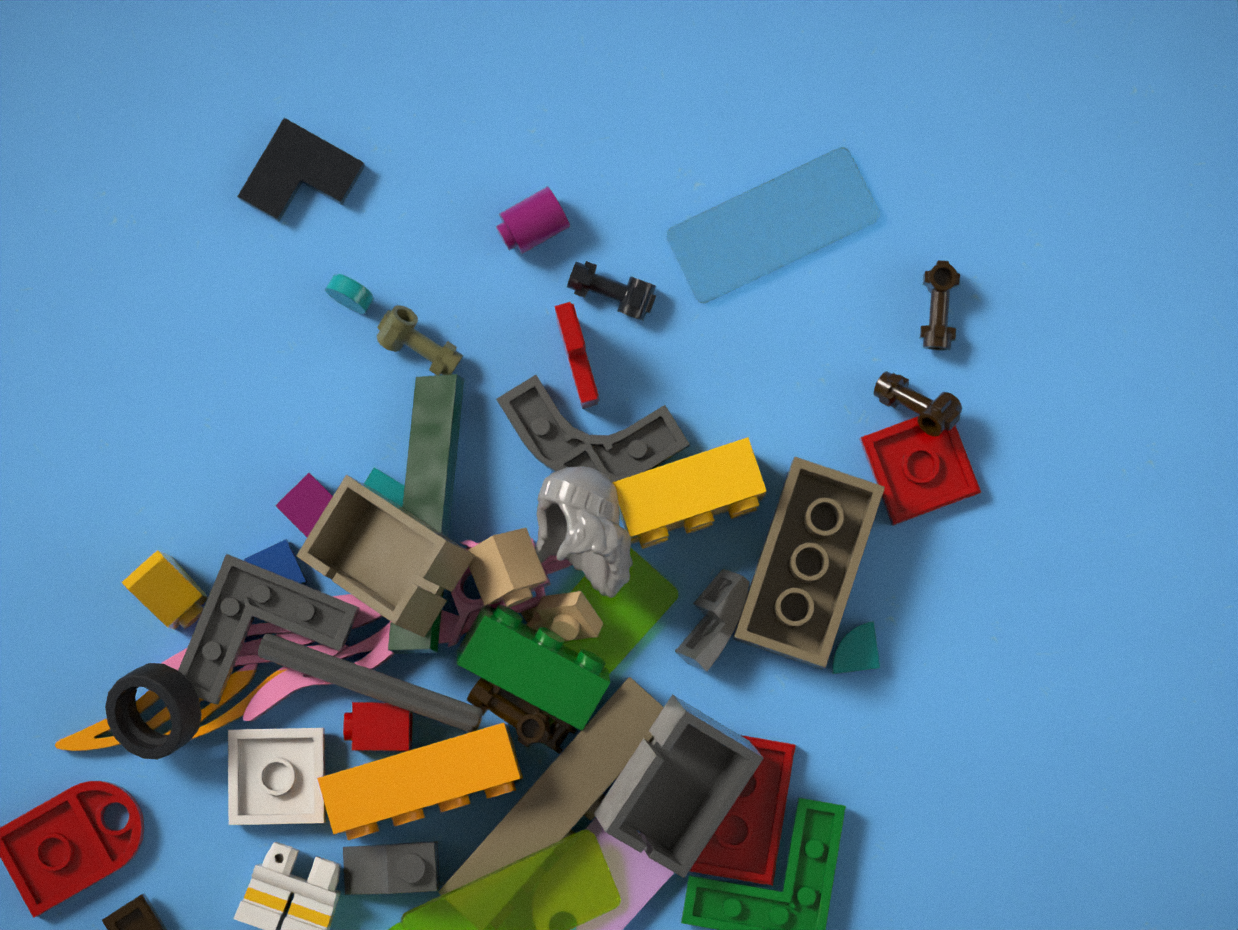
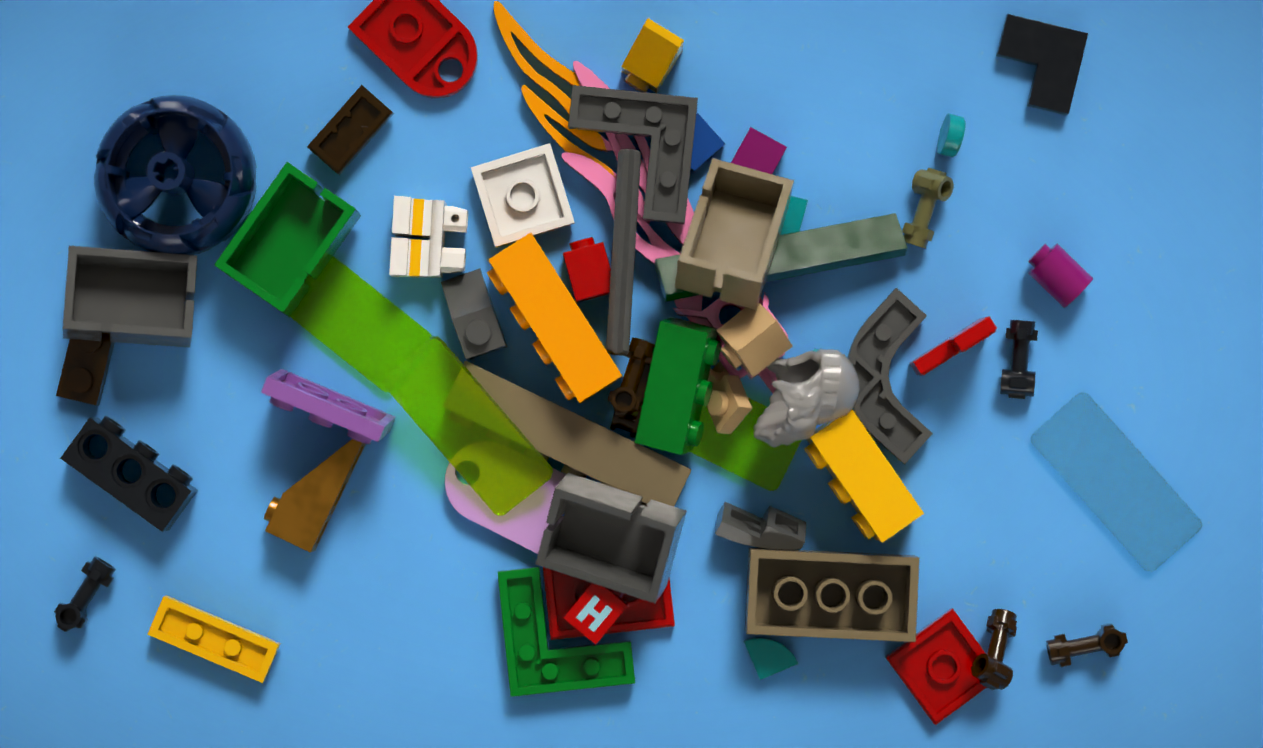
camera: 75 degrees right, 5 degrees up
(128, 724) = (568, 90): black tyre -> none
(754, 825) = (596, 611): none -> red brick

